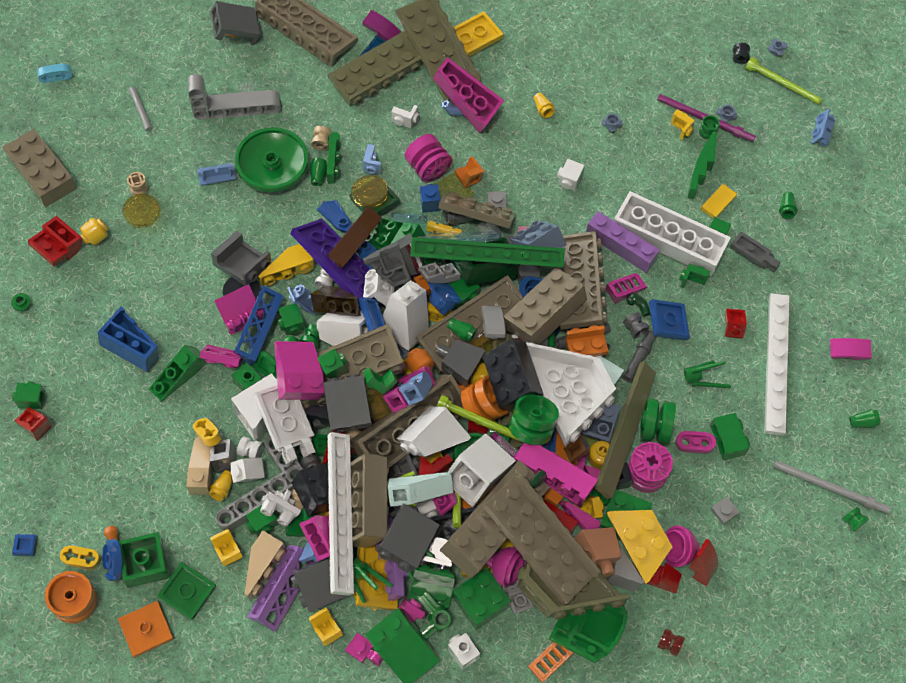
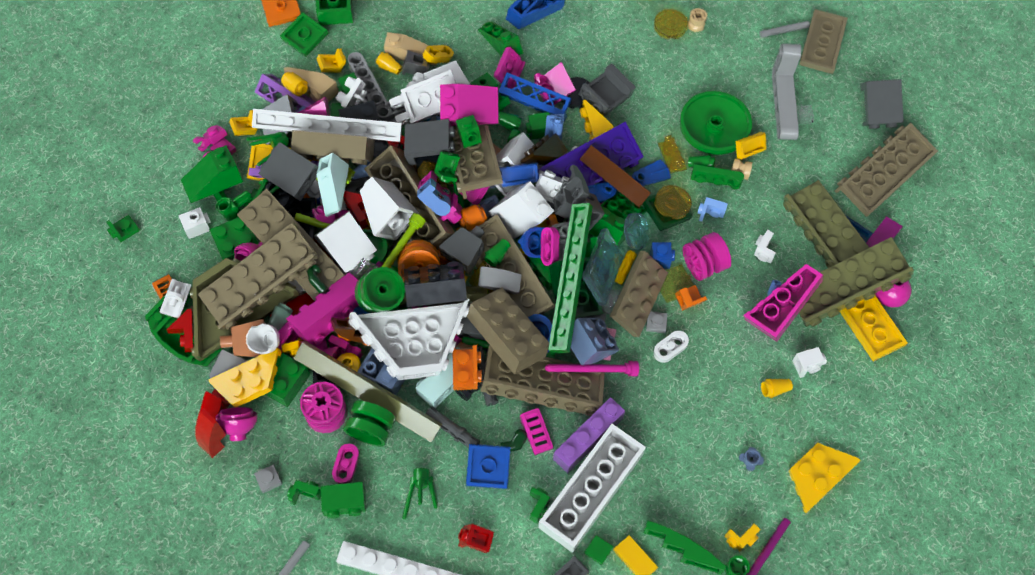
camera: 100 degrees right, 0 degrees up
(155, 74) = (823, 41): none -> dark tan plate
(216, 174) = (705, 78): medium blue hinge -> none
(247, 470) = (395, 77): white brick -> none
(272, 573) = (294, 83): none -> yellow brick
(295, 128) = (751, 145): none -> yellow tile
(311, 198) = (672, 155): none -> clear yellow hinge
(344, 663) = (212, 136): none -> dark pink plate
(413, 608) = (239, 183): dark pink bracket -> none
(447, 281) = (549, 245): none -> dark pink plate
(515, 81) = (809, 361): none -> white brick
(523, 185) = (670, 347): none -> white plate
(549, 215) = (630, 368): none -> dark pink piece
(570, 174) = (680, 398): white brick -> none
(572, 521) = (279, 315): none -> sand green cone
(574, 627) = (175, 298): none -> white hips
(599, 616) = (183, 325): none -> red slope
(605, 522) = (263, 338): none -> white hair
(613, 75) = (819, 472): none -> yellow wing
(636, 325) = (492, 430): flat silver wheel -> none
(666, 640) = (151, 395): clear red wheel -> none
(728, 469) = (307, 489): none -> green bracket

